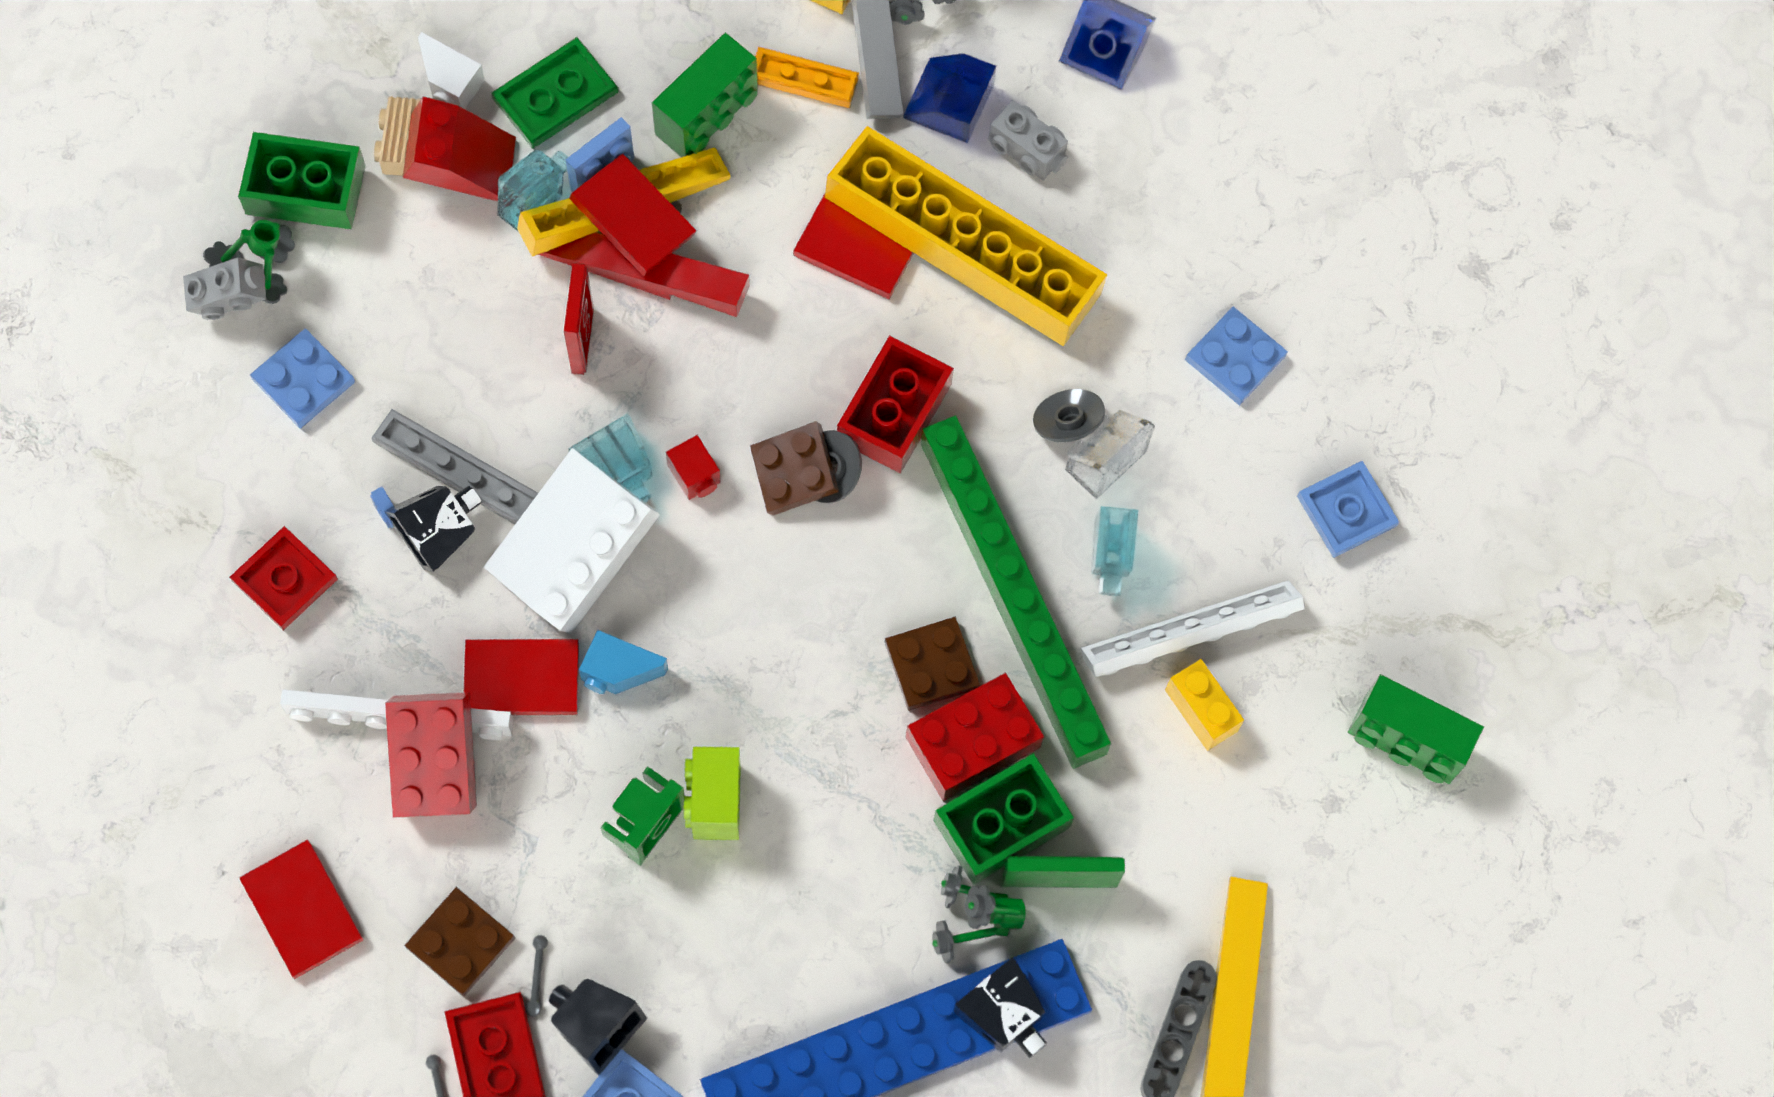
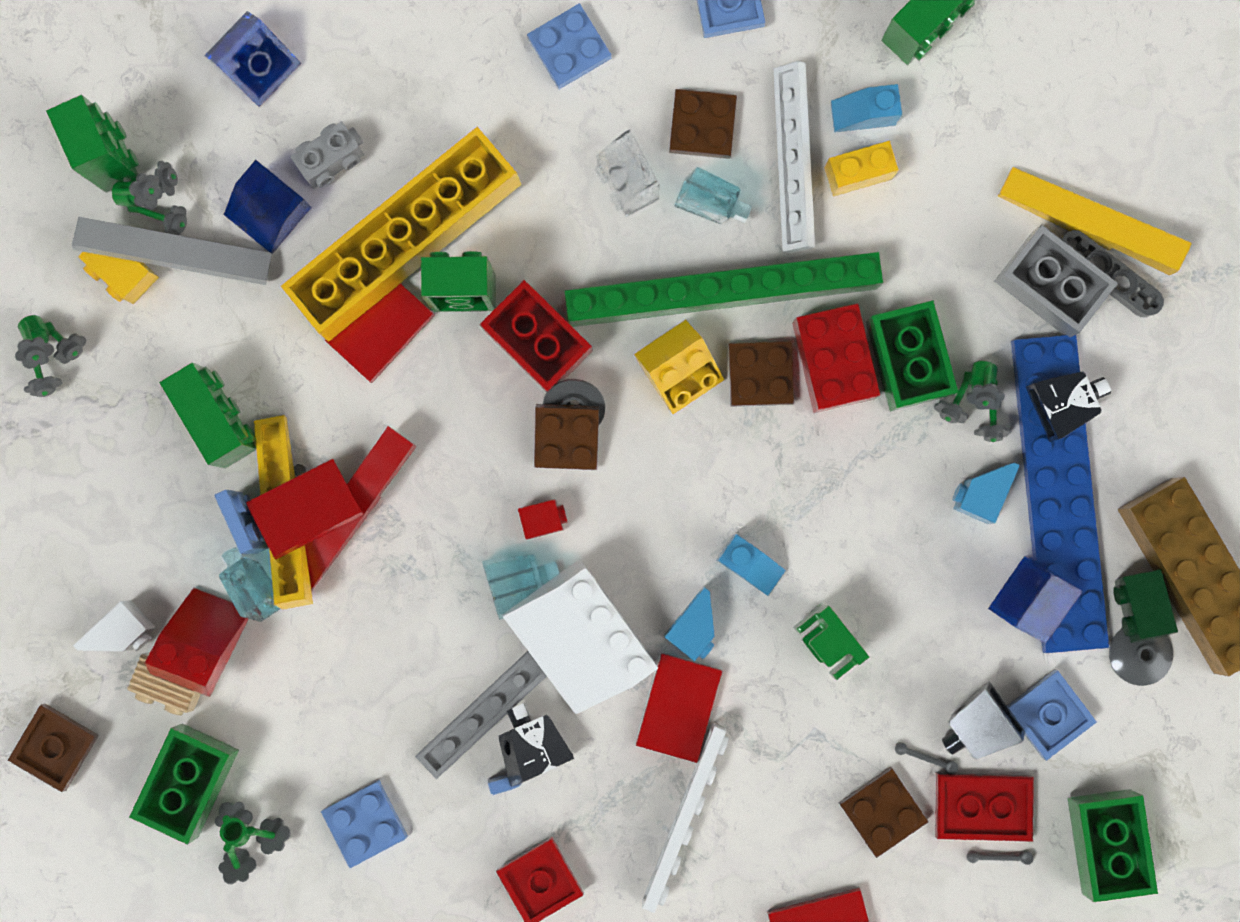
camera: 65 degrees left, 15 degrees up
(224, 288) = (268, 874): light grey brick -> none
(306, 46) = (53, 747): none -> reddish brown plate
(431, 754) = (734, 800): brick -> none
(554, 92) = (160, 543): green tile -> none
(579, 319) = (389, 580): red tile -> none
(707, 706) = (751, 564): none -> dark azure slope
(715, 795) = (829, 578): lime brick -> none
(759, 1037) = (1035, 599): none -> clear blue slope
(806, 77) = (210, 325): light orange tile -> none
(870, 952) = (985, 494): none -> dark azure slope
(910, 568) = (679, 366): none -> yellow slope
(927, 299) = (458, 282): none -> green brick
(1063, 872) = (970, 321): green tile -> none
(1069, 415) = (575, 197): dark grey dish -> none
(1144, 961) = (1055, 282): none -> light grey brick
(1198, 521) = (703, 124): none -> reddish brown plate
(1277, 695) = (867, 109): none -> dark azure slope

